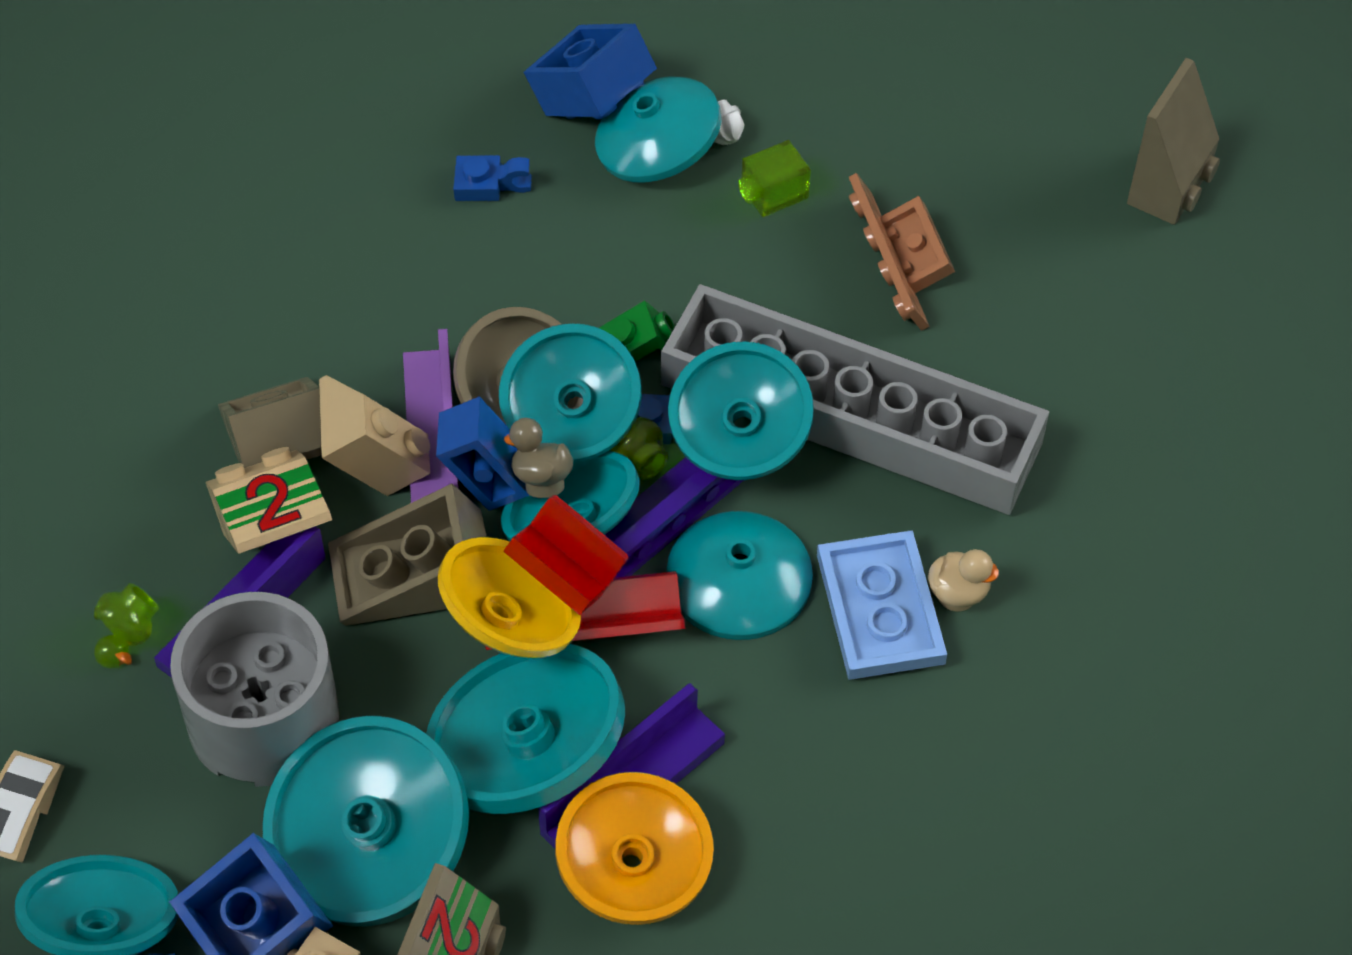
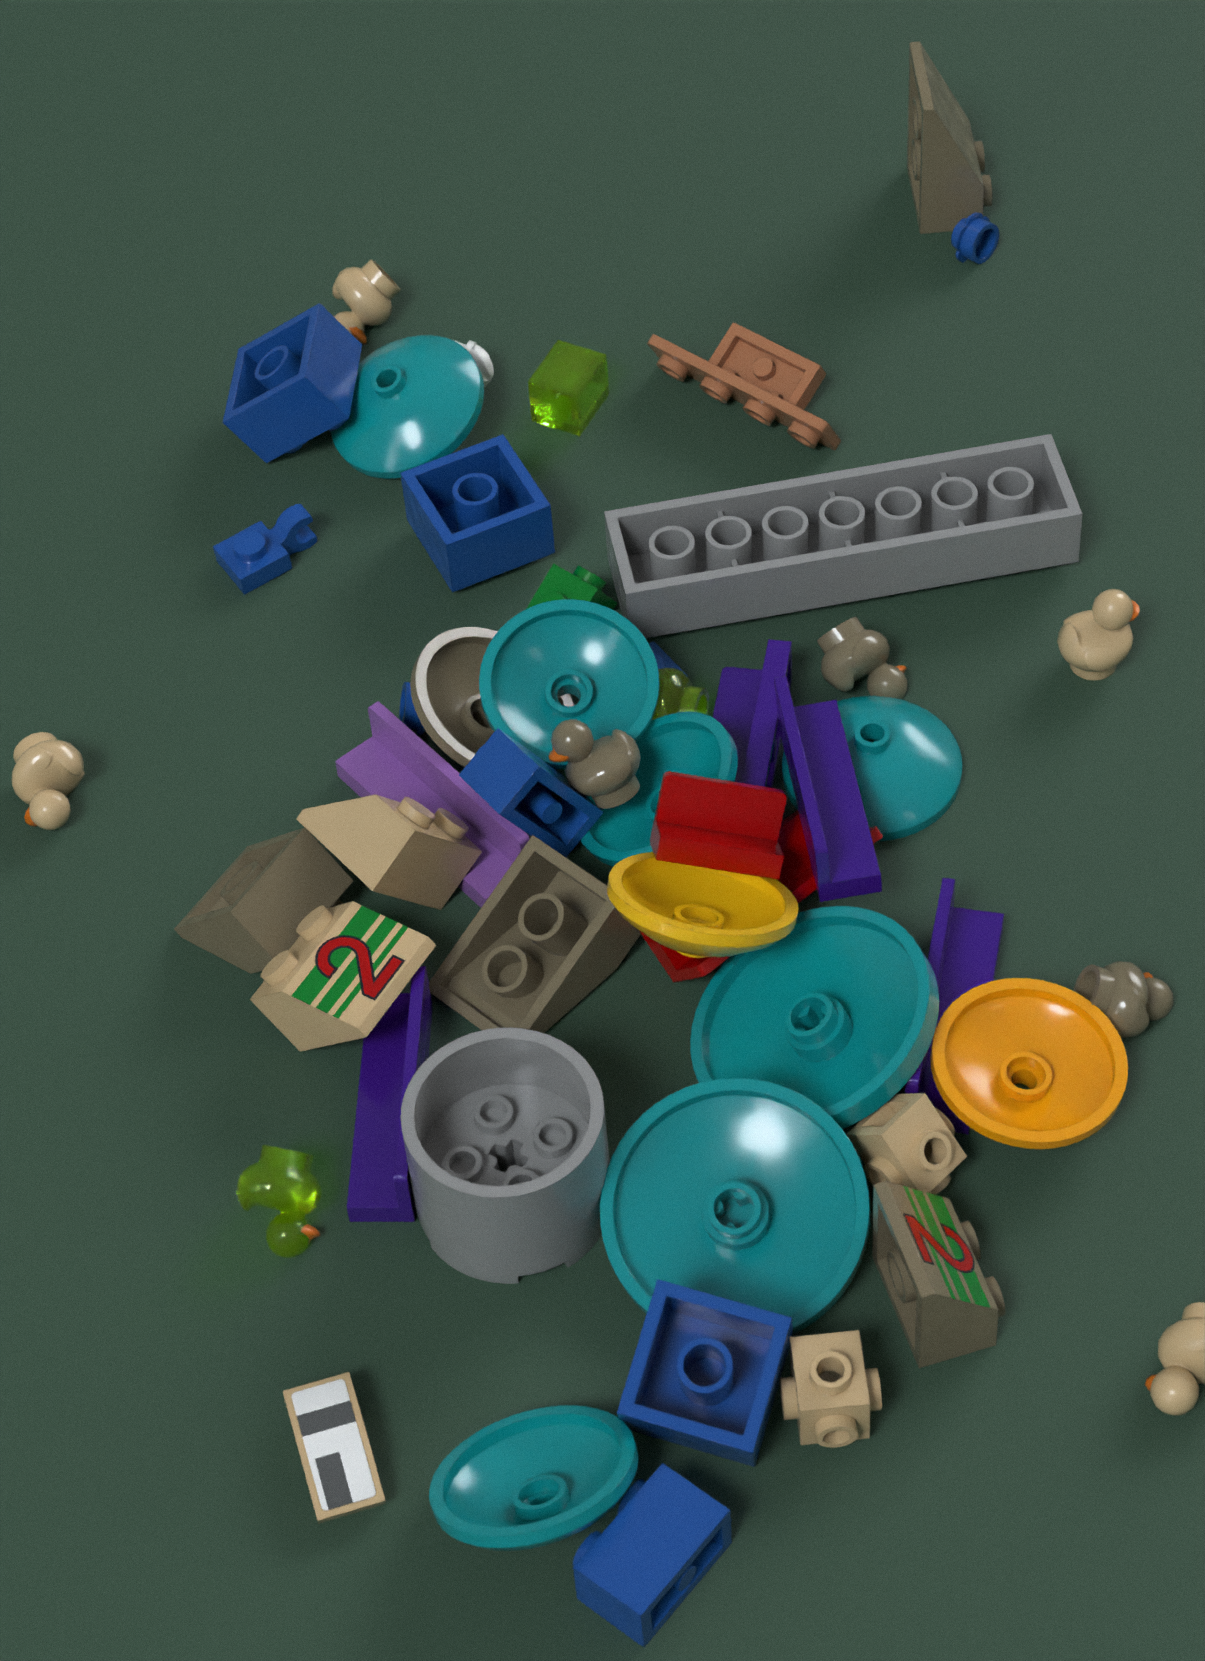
camera: 30 degrees left, 5 degrees down
(223, 251) = (44, 777): none -> tan animal
(510, 852) = (908, 1144): none -> tan brick
(631, 234) = (478, 513): none -> blue brick
(661, 574) = (827, 797): none -> dark purple panel
(702, 35) = (367, 294): none -> tan animal
(733, 384) = (772, 568): teal dish -> none
(744, 838) = (1125, 995): none -> dark tan animal
(795, 489) = (859, 652): none -> dark tan animal
(881, 605) = (1039, 708): light blue plate -> none
(1154, 231) = (975, 238): none -> blue plate

